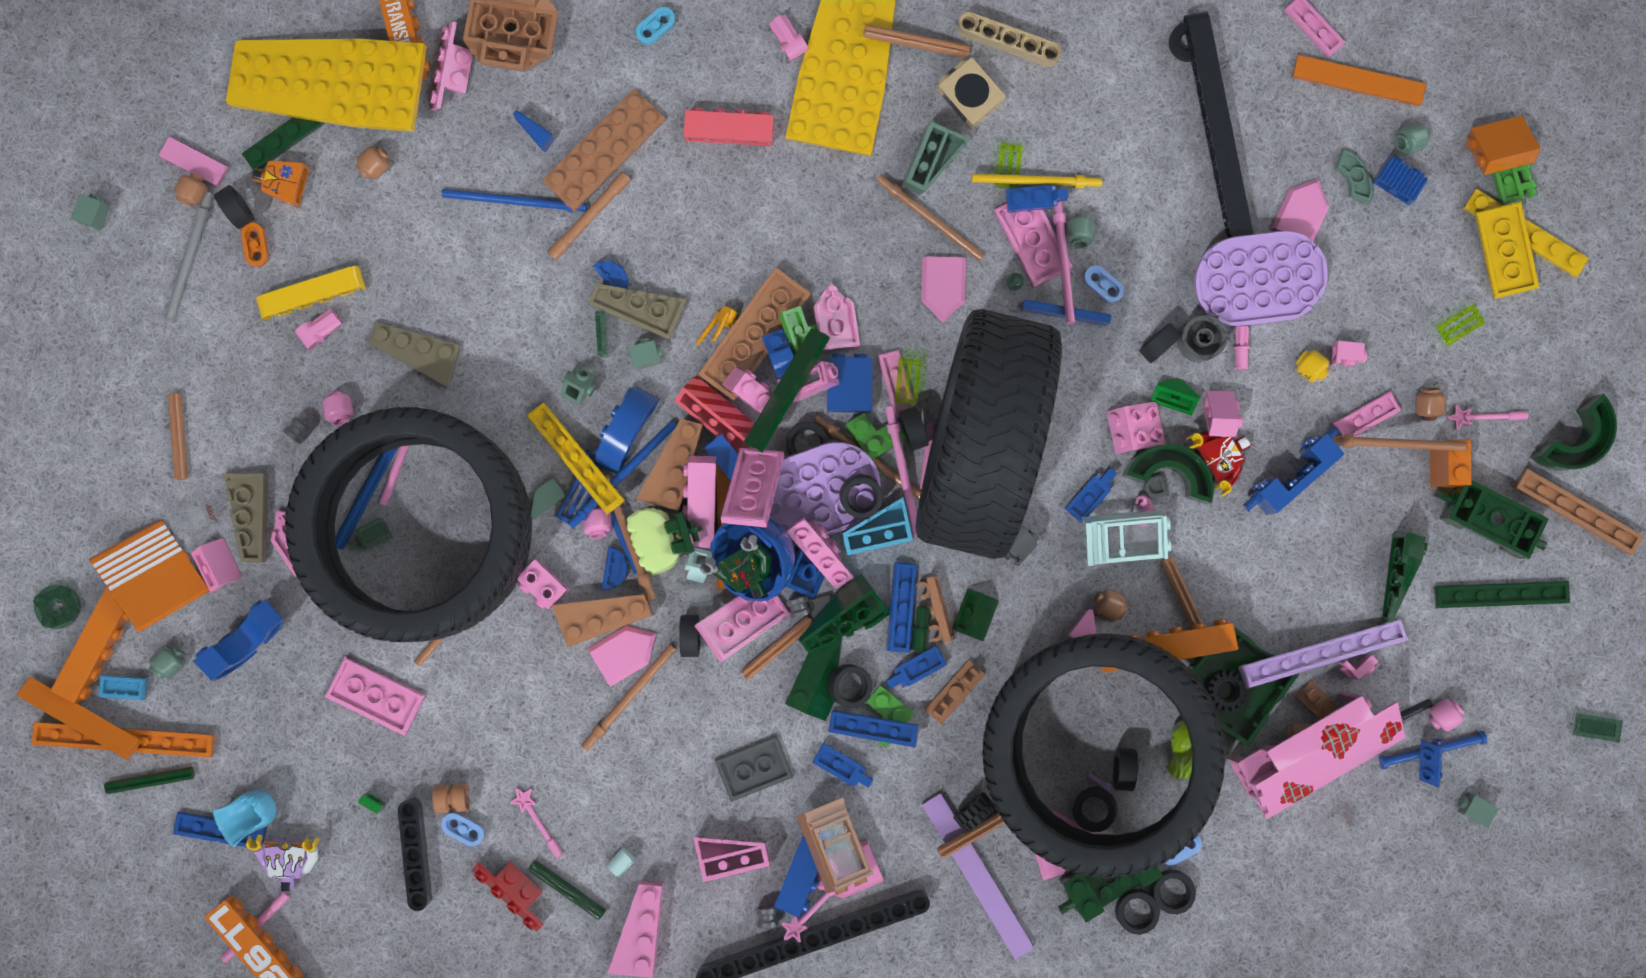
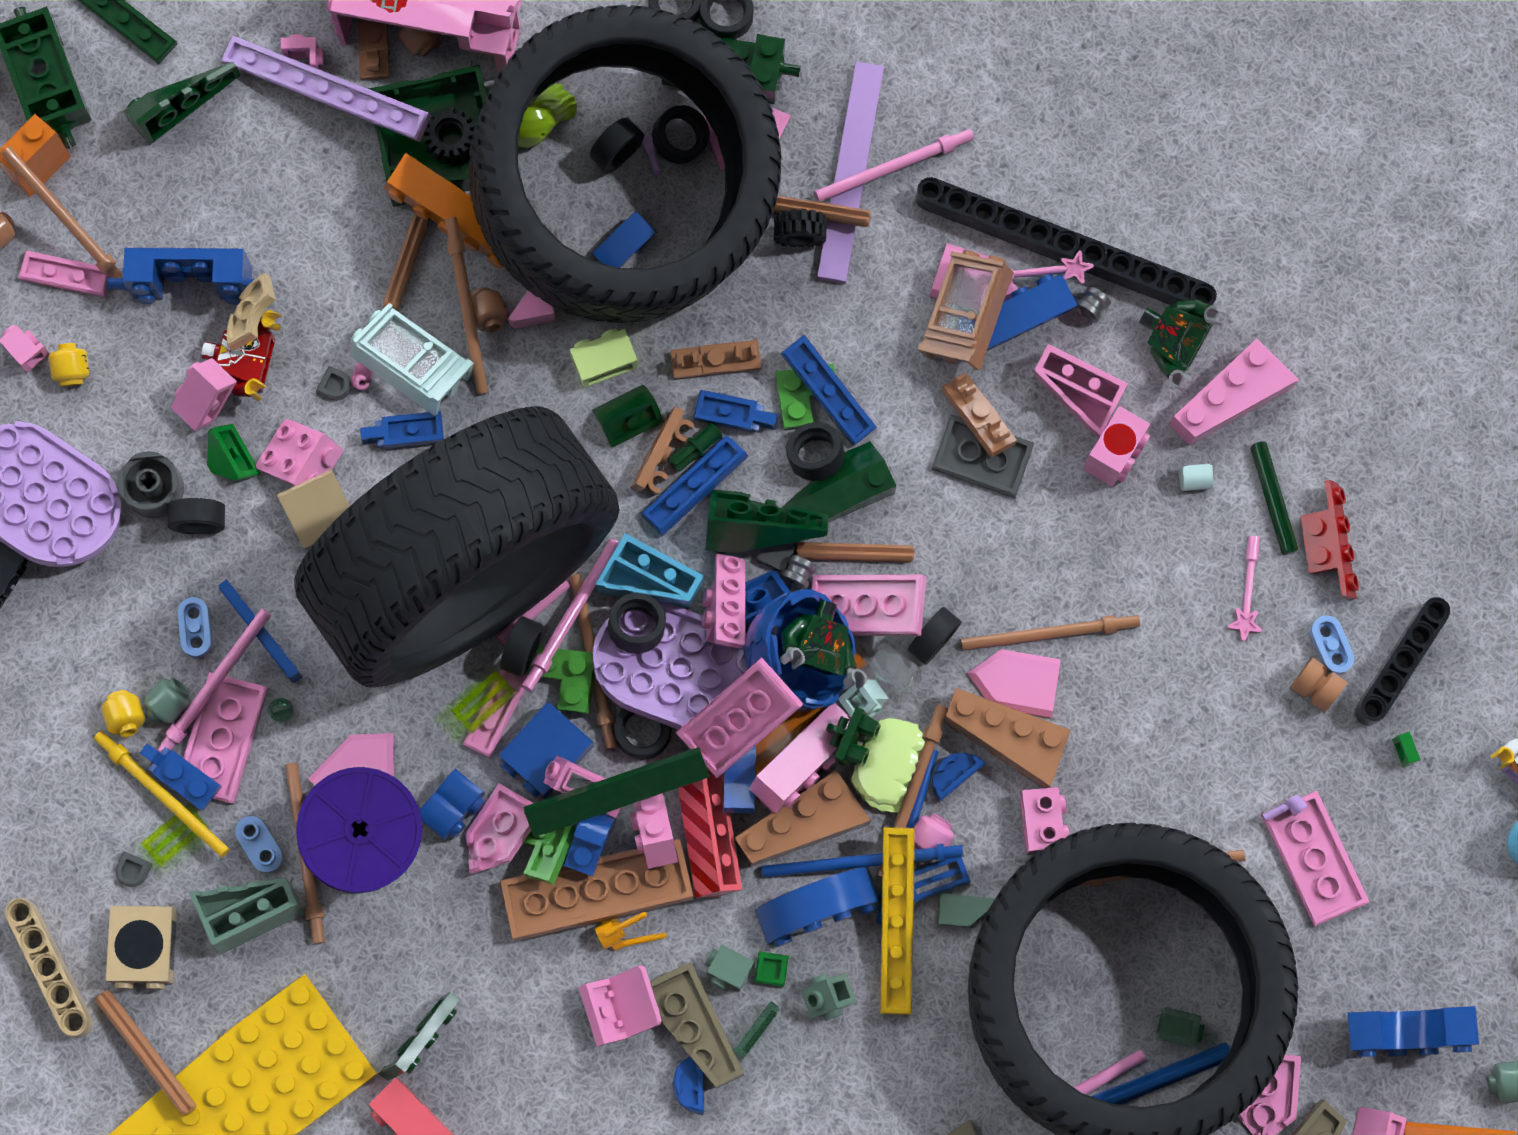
camera: 140 degrees left, 10 degrees down
(410, 715) = (1294, 804): none -> lavender hand
(623, 375) = (771, 969): none -> green tile
(678, 839) = (1120, 441): none -> bright pink brick
(686, 282) = (620, 1006): none -> bright pink bracket
(699, 940) = (1179, 335): none -> dark green torso
(775, 790) = (979, 415): none -> nougat plate
(777, 165) = (408, 1052): none -> wing
(841, 766) = (893, 383): blue hinge -> none
(874, 310) = (451, 805): none -> blue brick
(907, 246) = (358, 798): none -> dark purple piece
(938, 940) = (942, 145): none -> bright pink bar
(958, 203) = (258, 844): none -> light blue plate
(1014, 128) = (132, 870): none -> dark grey tile
(1018, 635) = (603, 357): none -> yellowish green brick
(1068, 715) = (625, 241): none -> blue slope
(1097, 203) = (123, 713): none -> yellow head
(1098, 407) = (314, 506): none -> tan tile
(1158, 621) = (456, 248): none -> nougat bar
(1179, 459) = (283, 373): dark green brick -> none
(1241, 347) = (120, 444): bright pink axle -> none
(1242, 488) = (254, 301): none -> tan tile

